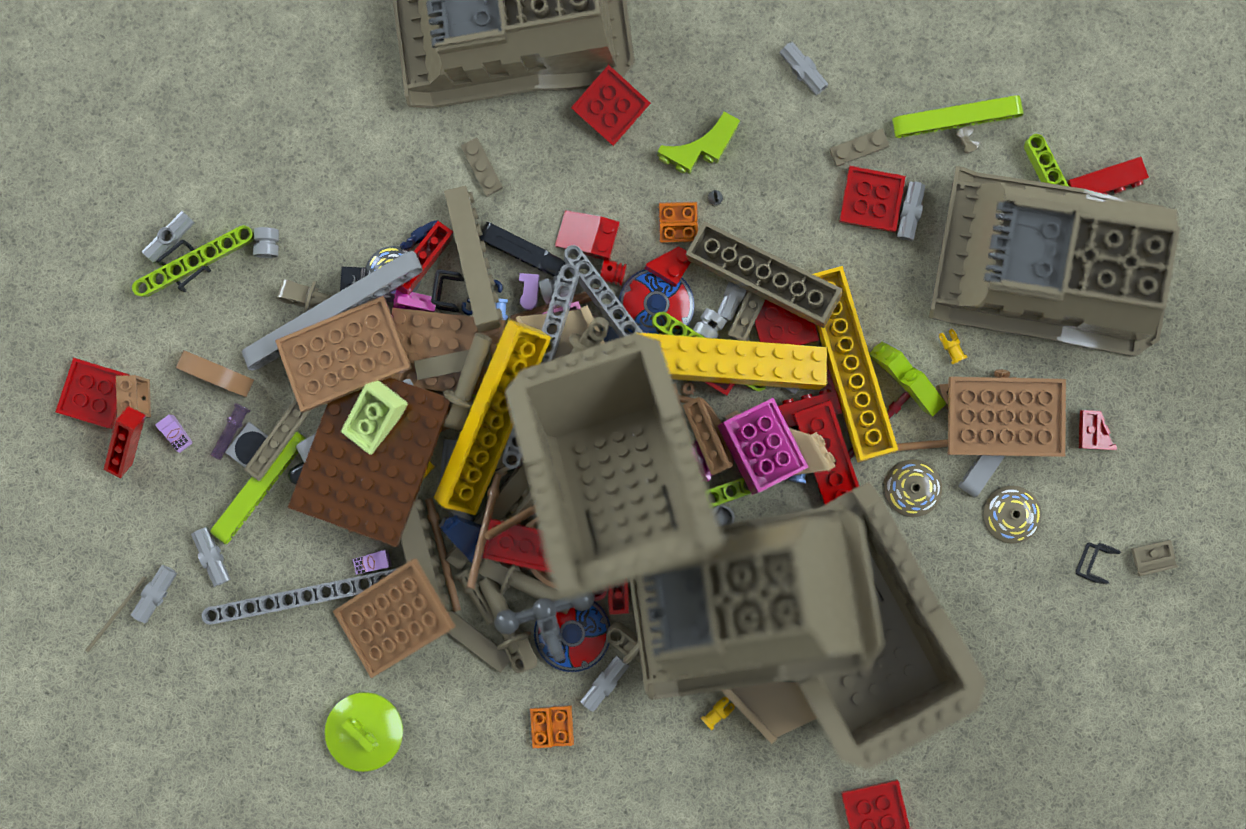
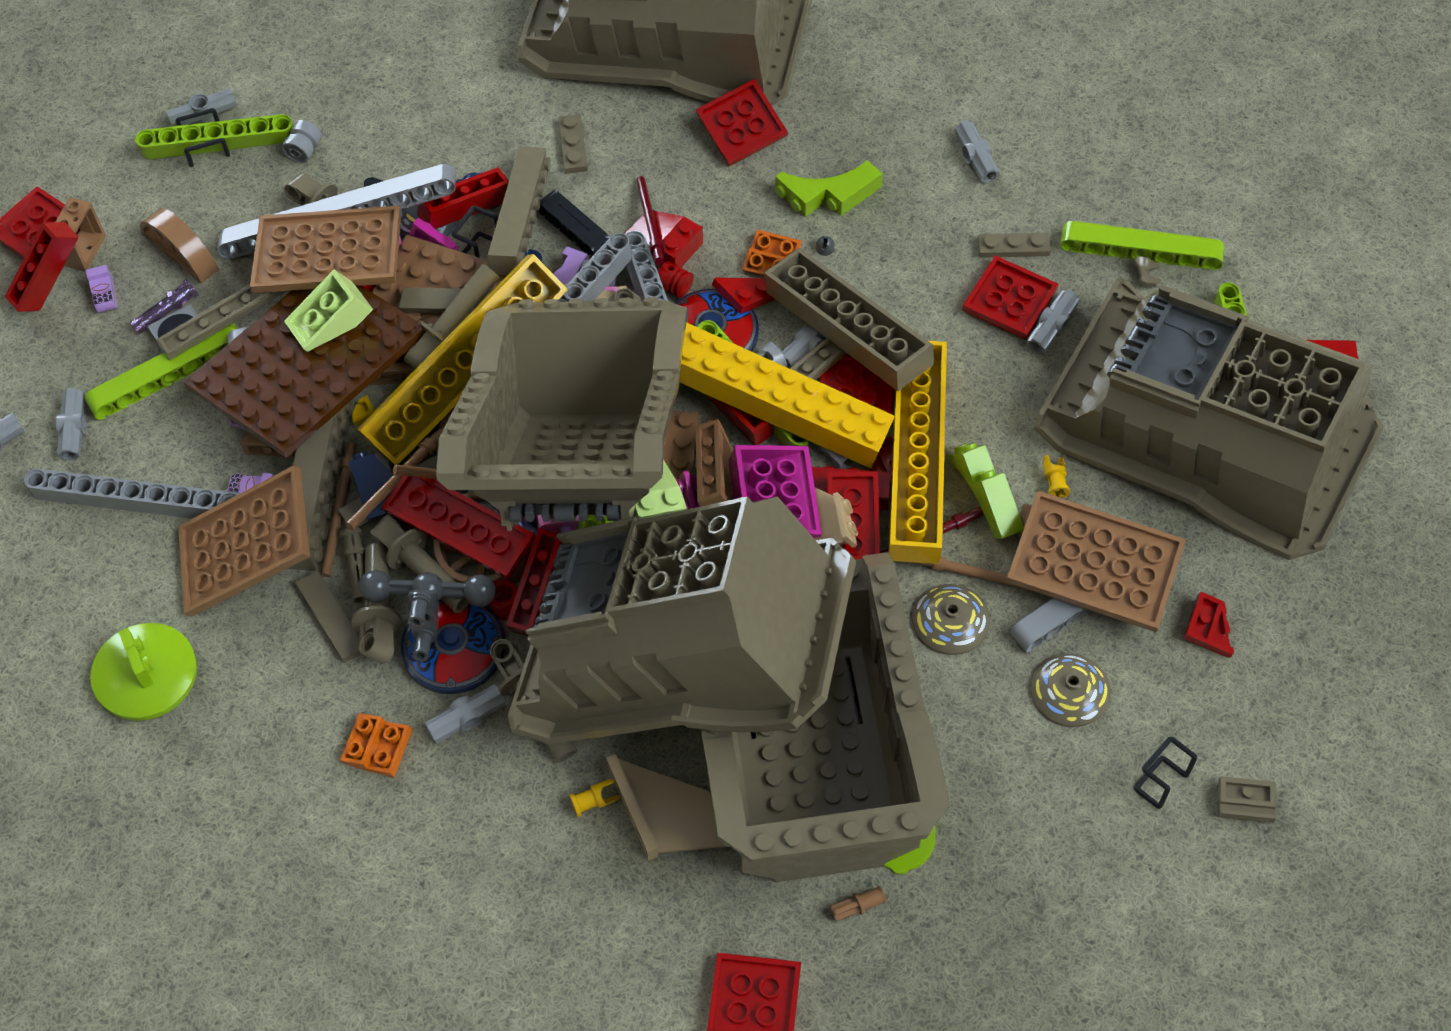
camera: 20 degrees right, 25 degrees down
(592, 254) = (655, 245): none -> dark red bar

